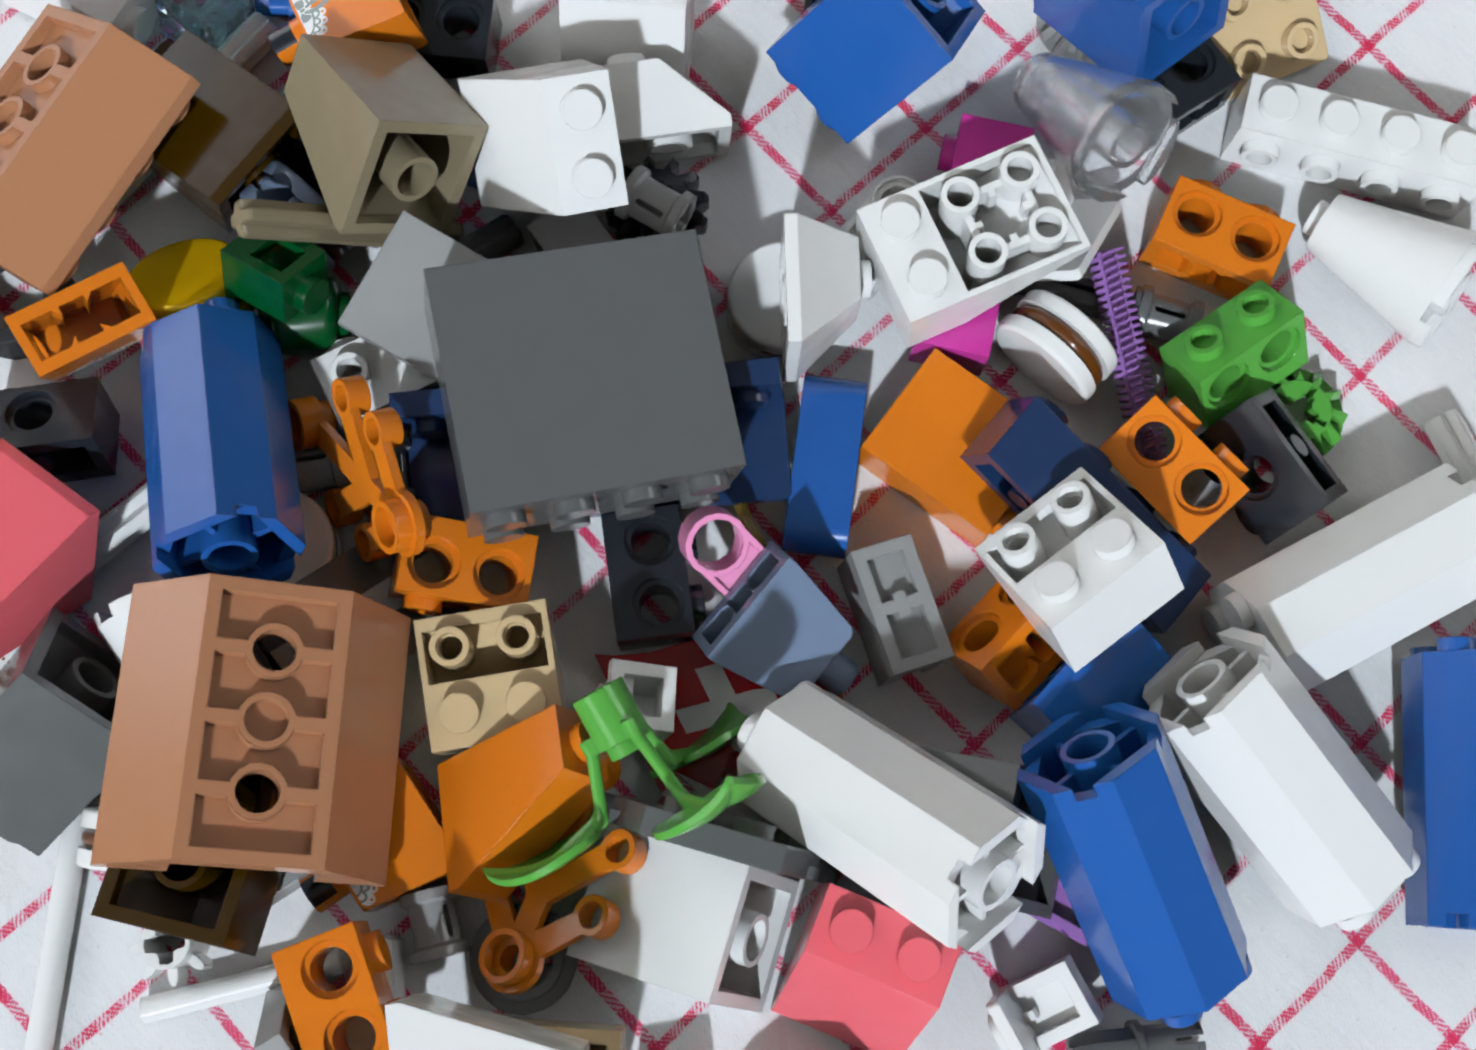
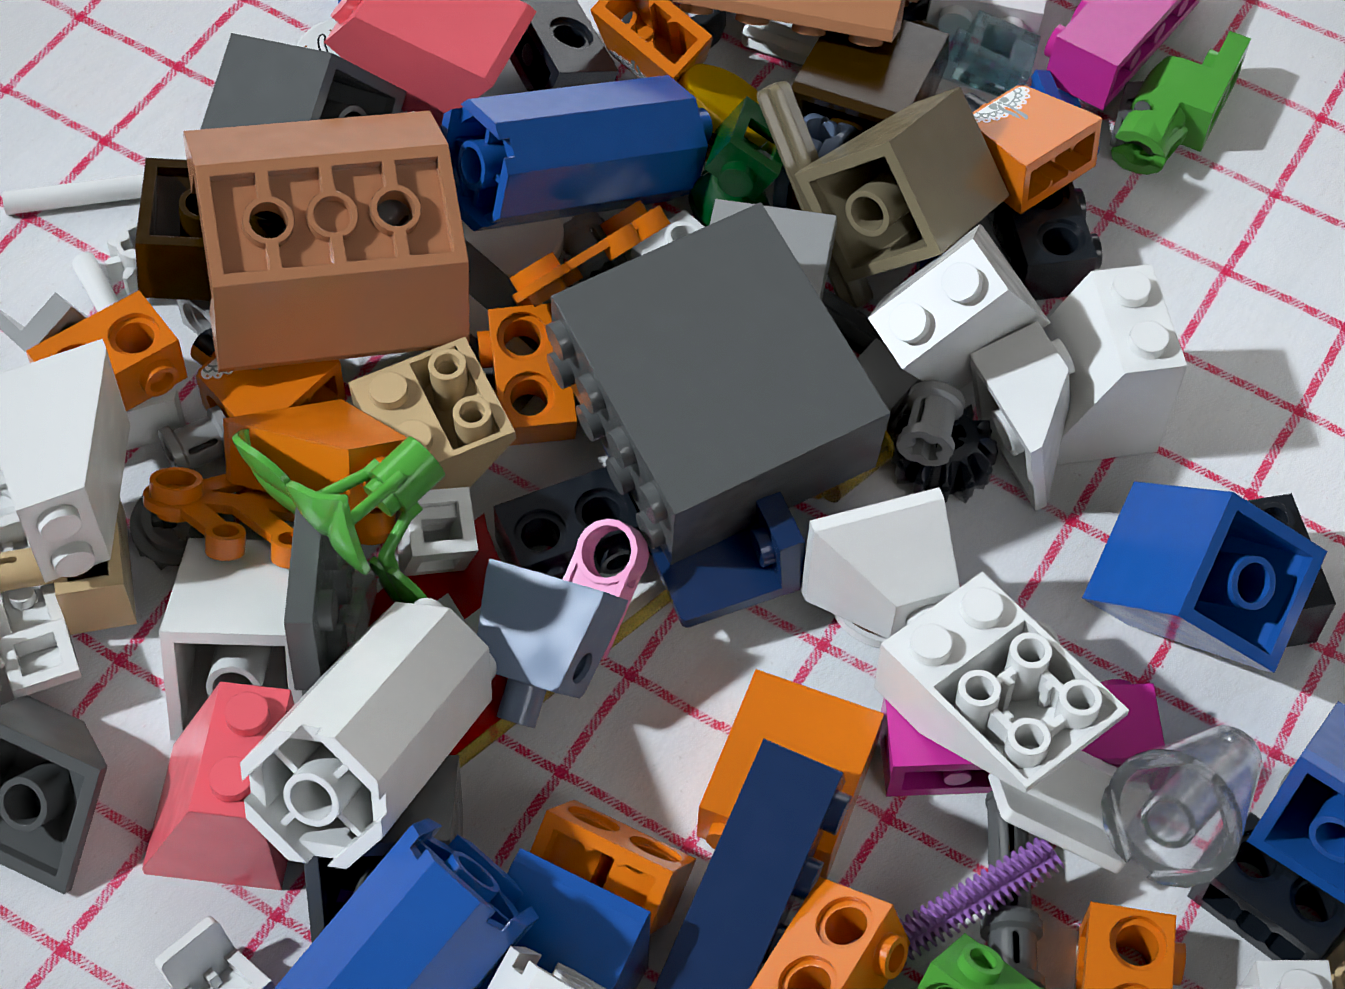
camera: 75 degrees right, 20 degrees down
(824, 466) = (717, 656): blue beam -> none
(894, 609) = (598, 745): light grey hinge -> none
(1056, 346) = (929, 835): white head -> none
(1081, 568) = (668, 854): white slope -> none

